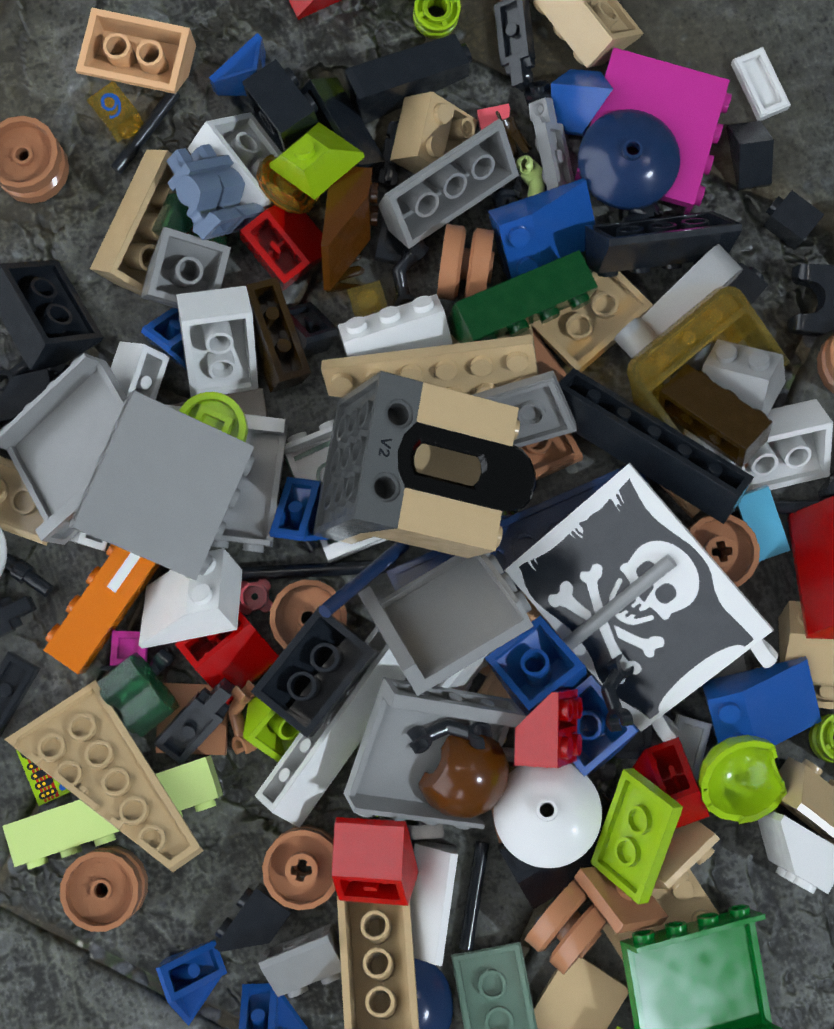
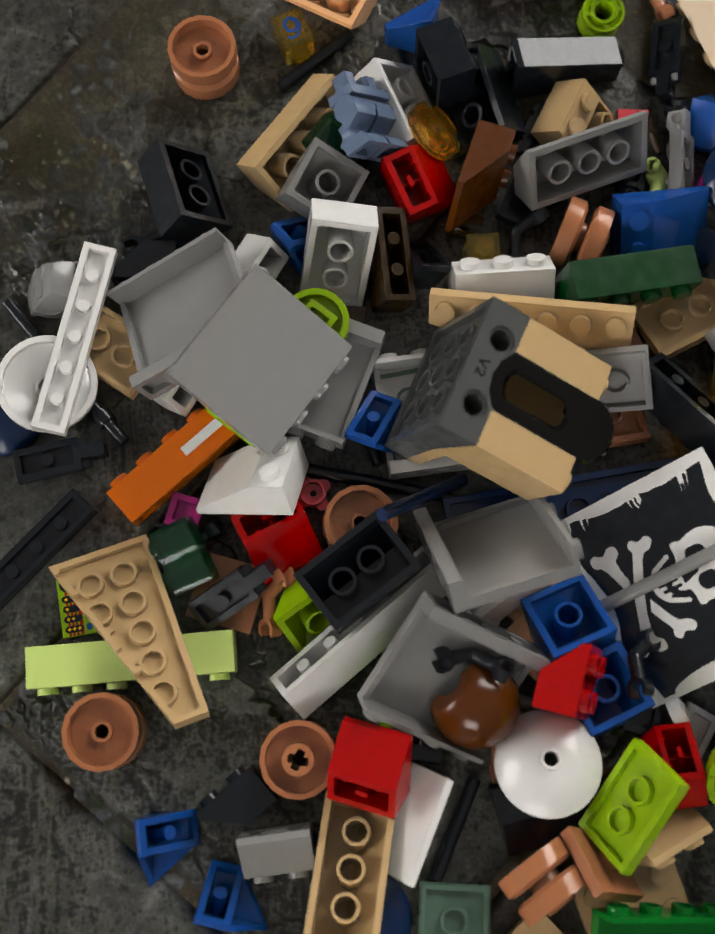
camera: 10 degrees right, 5 degrees down
(316, 160) = (466, 111): lime slope -> none

